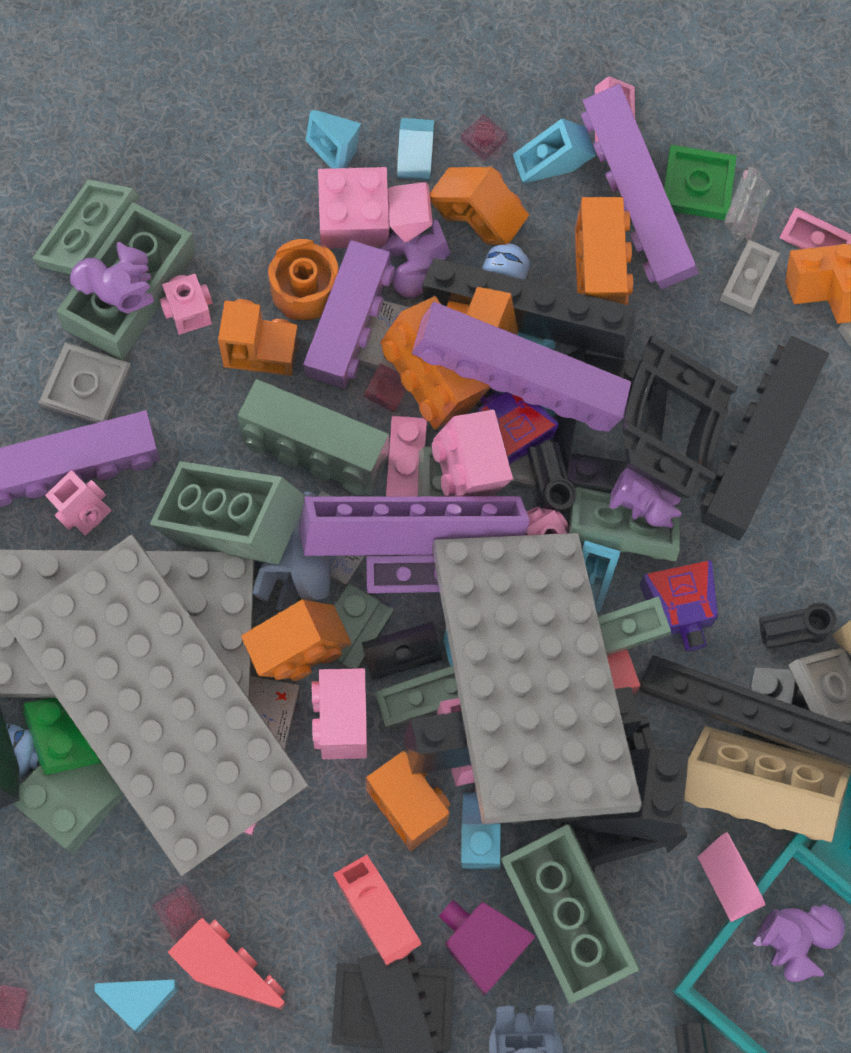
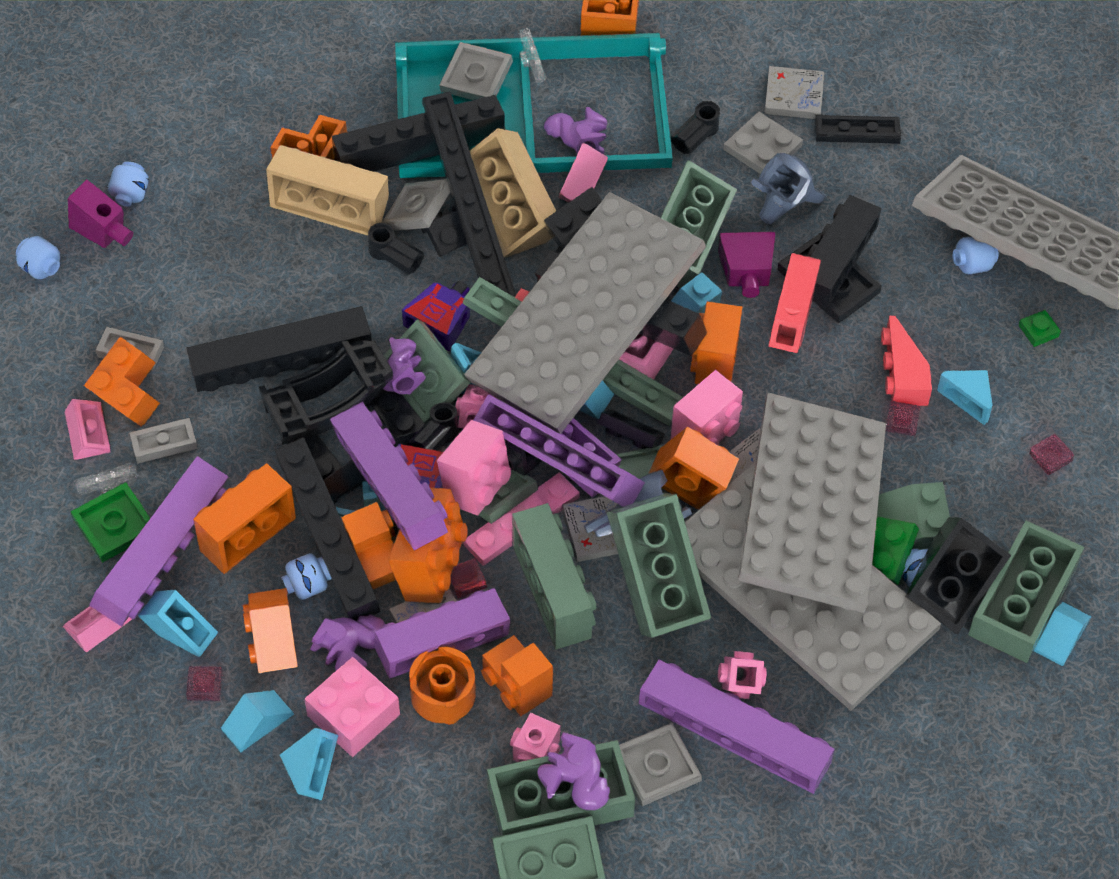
camera: 130 degrees left, 15 degrees down
(409, 209) = (320, 659): bright pink slope -> none

